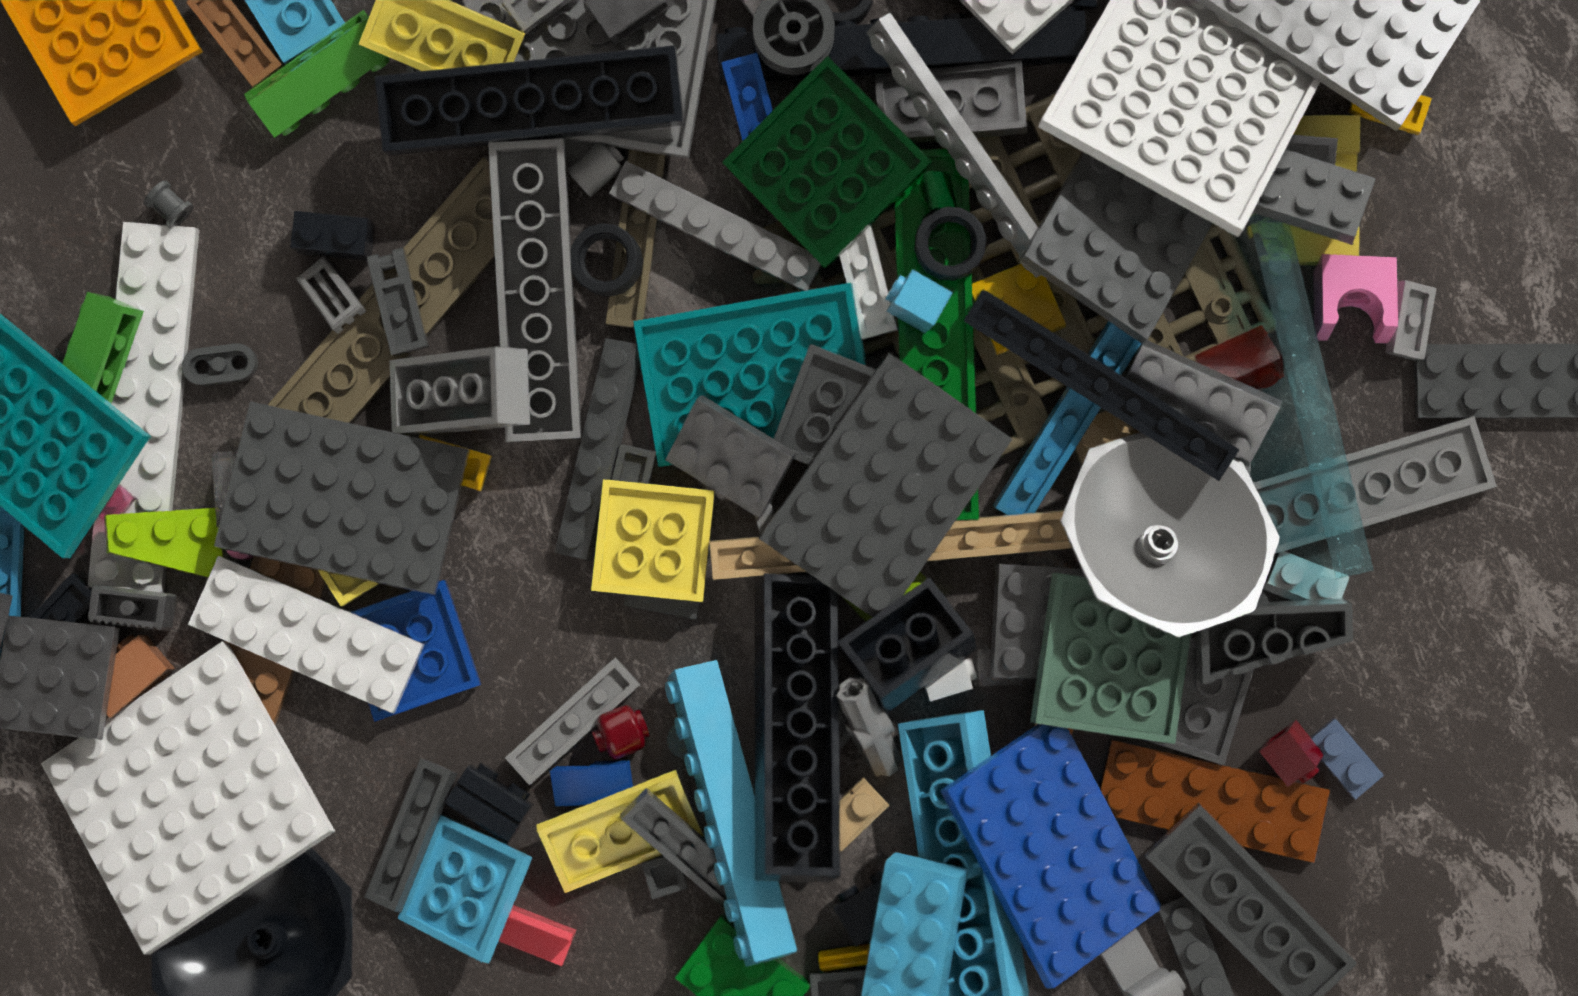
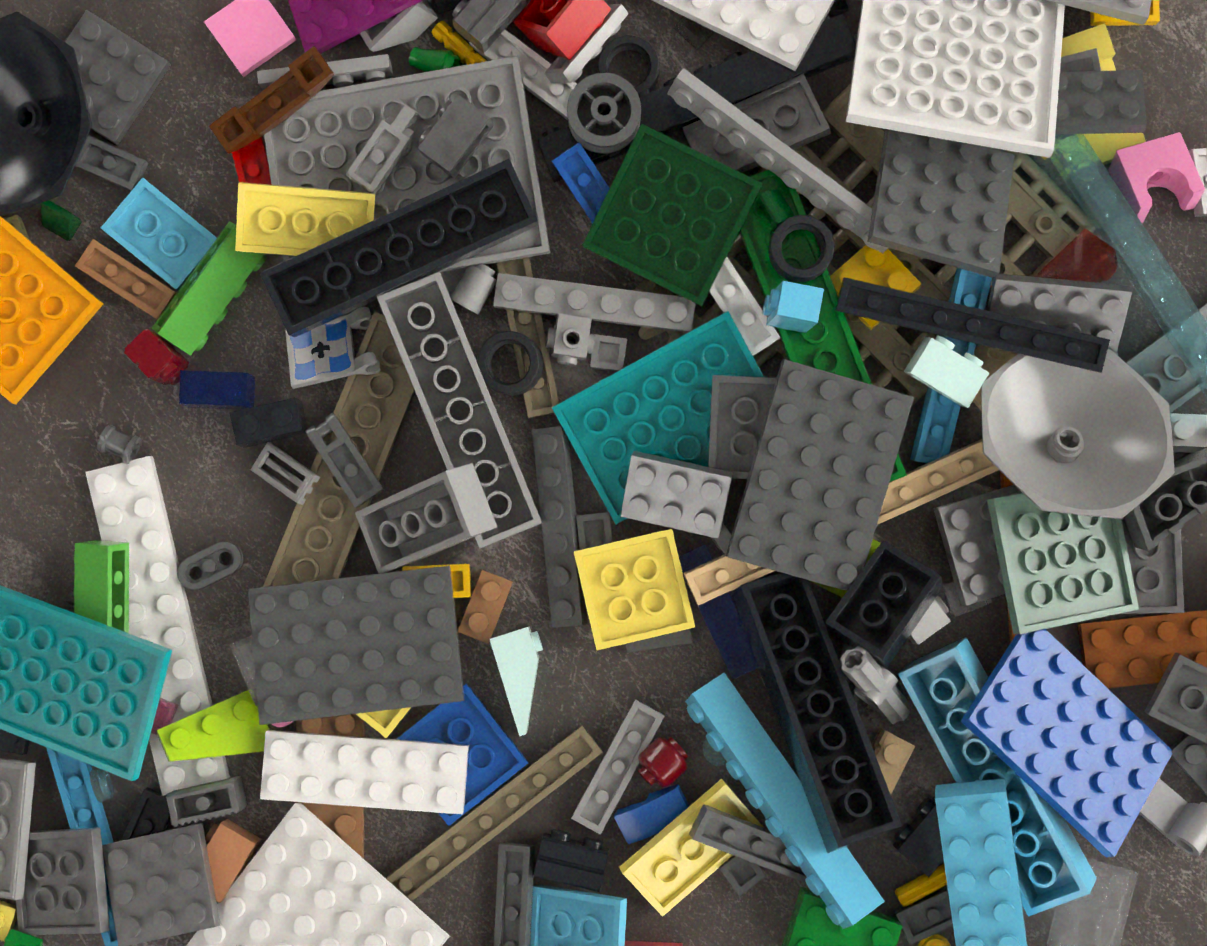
camera: 20 degrees left, 0 degrees up
(29, 553) = (101, 785): none -> clear light blue tile
(239, 128) = (156, 357): none -> dark red brick
(290, 182) = (216, 389): none -> clear blue brick
(421, 182) = (329, 351): none -> light grey flag
(428, 726) = (495, 814): none -> dark tan plate
(492, 507) = (485, 606): none -> medium nougat plate
(505, 579) = (518, 665): none -> light aqua slope
(687, 246) = (578, 330): none -> light grey brick
(713, 284) = (608, 353): none -> light grey plate
(735, 607) = (723, 622): none -> clear blue plate
(1058, 424) = (947, 371): none -> light aqua brick

